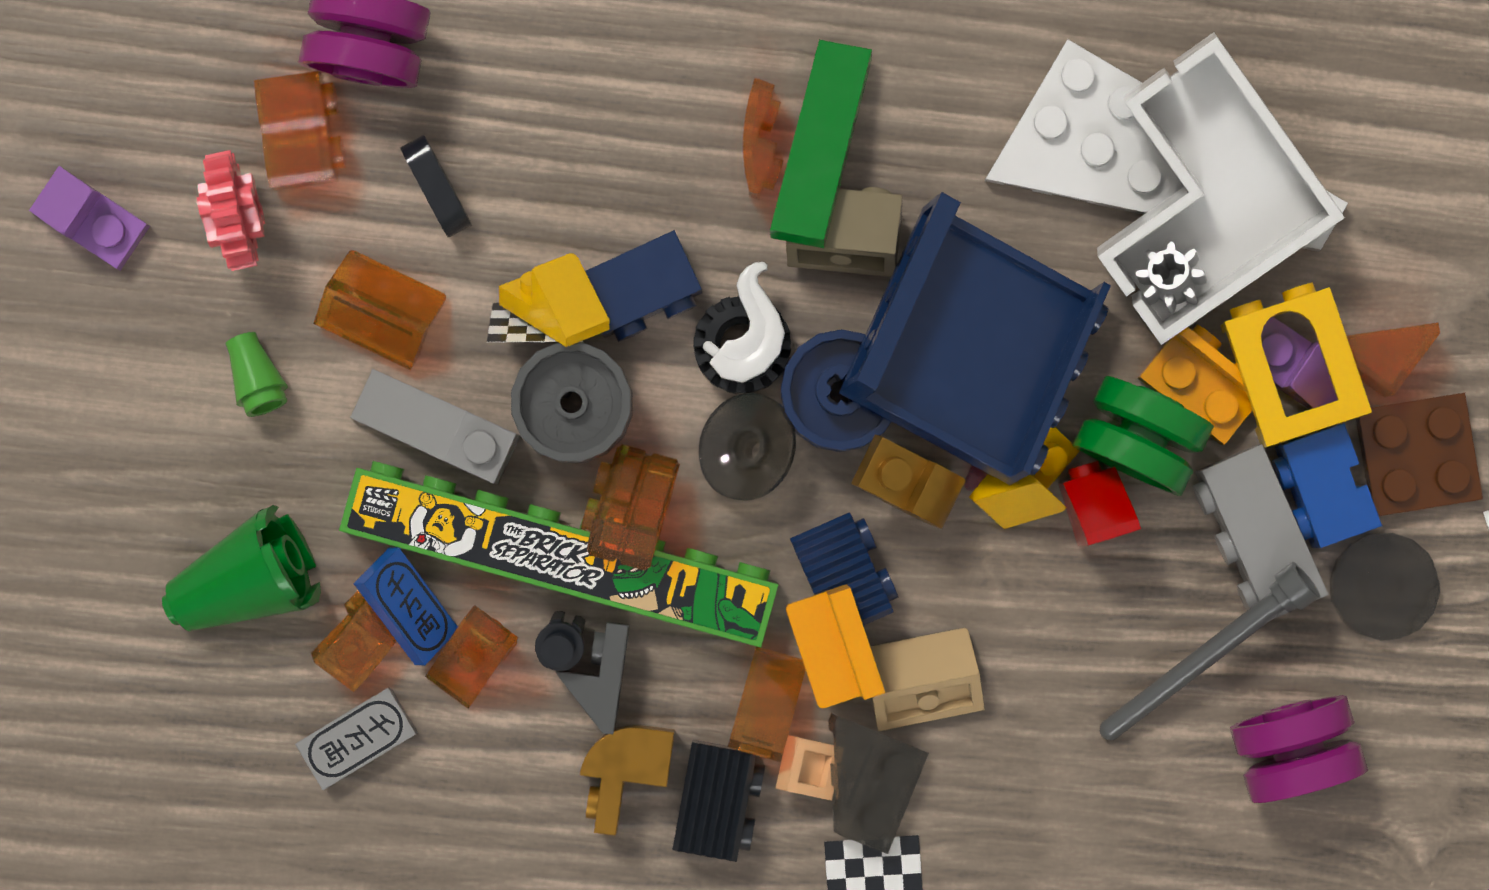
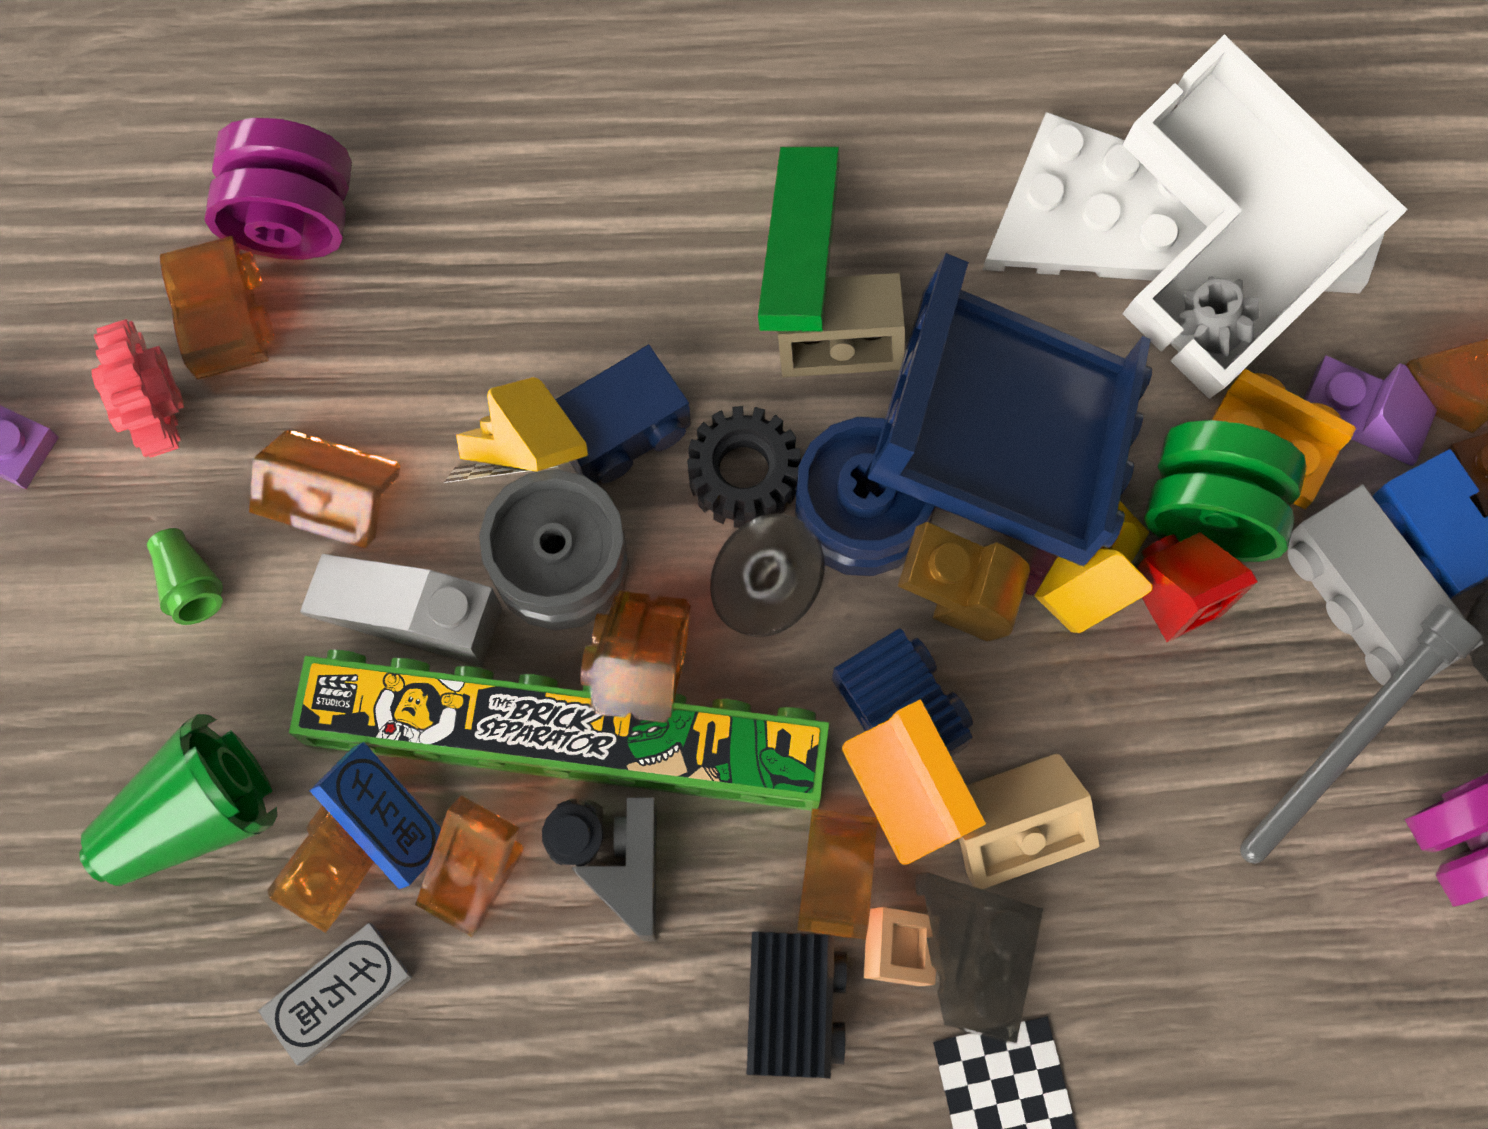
camera: 10 degrees left, 15 degrees down
(435, 186) = (376, 345): black beam -> none
(629, 755) = (672, 963): pearl gold brick -> none
(759, 158) = (732, 265): clear orange slope -> none
(761, 344) = (764, 456): white piece -> none
(1245, 340) = (1374, 458): yellow panel -> none

